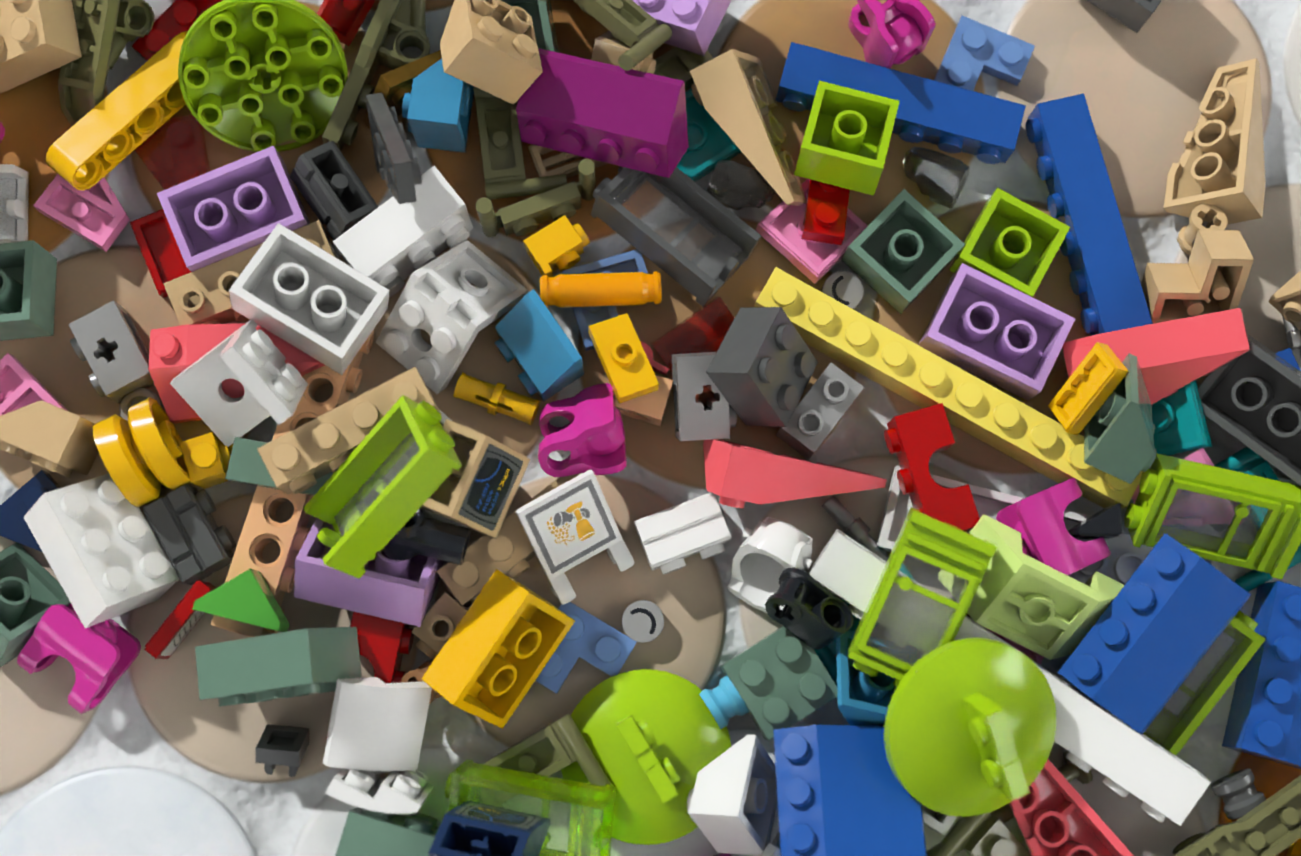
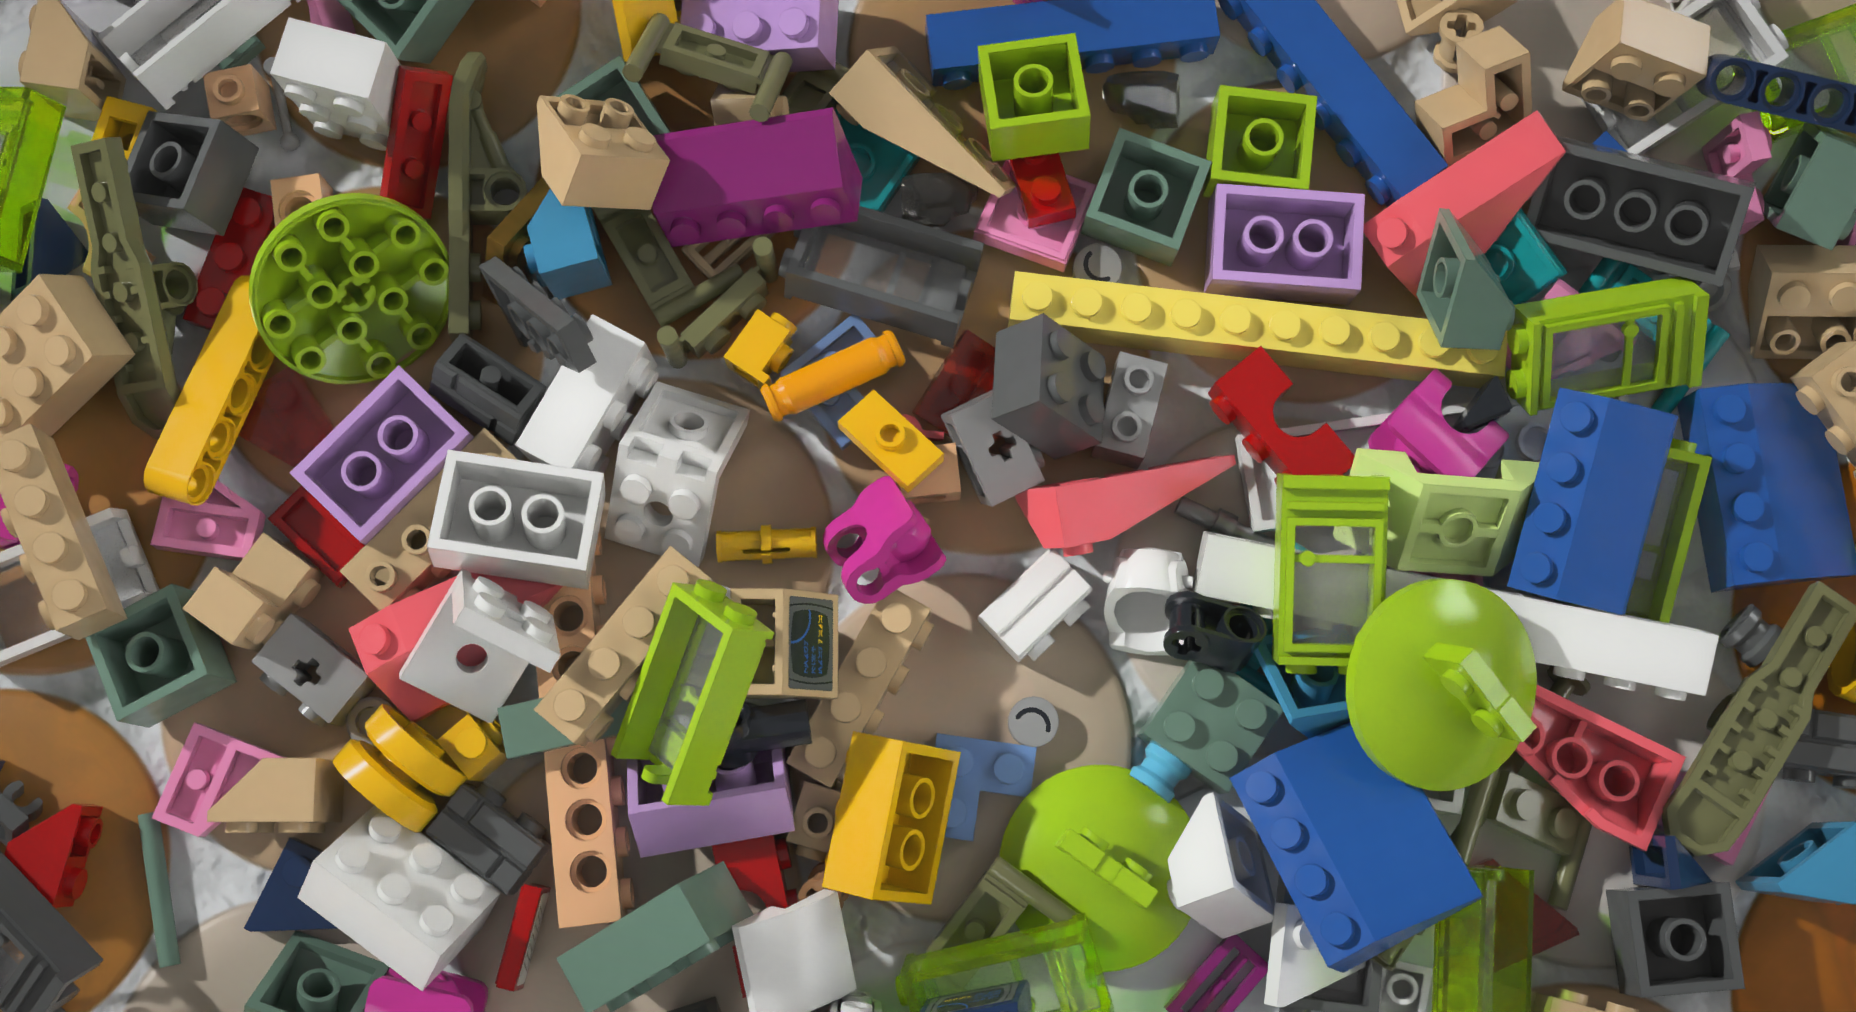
camera: 20 degrees left, 0 degrees up
(93, 277) = (257, 595): none -> tan brick
(245, 600) = (589, 884): bright green slope -> none
(538, 347) = (791, 468): dark azure slope -> none
(570, 528) = (913, 652): white flag -> none
(1087, 388) = (1410, 265): yellow plate -> none

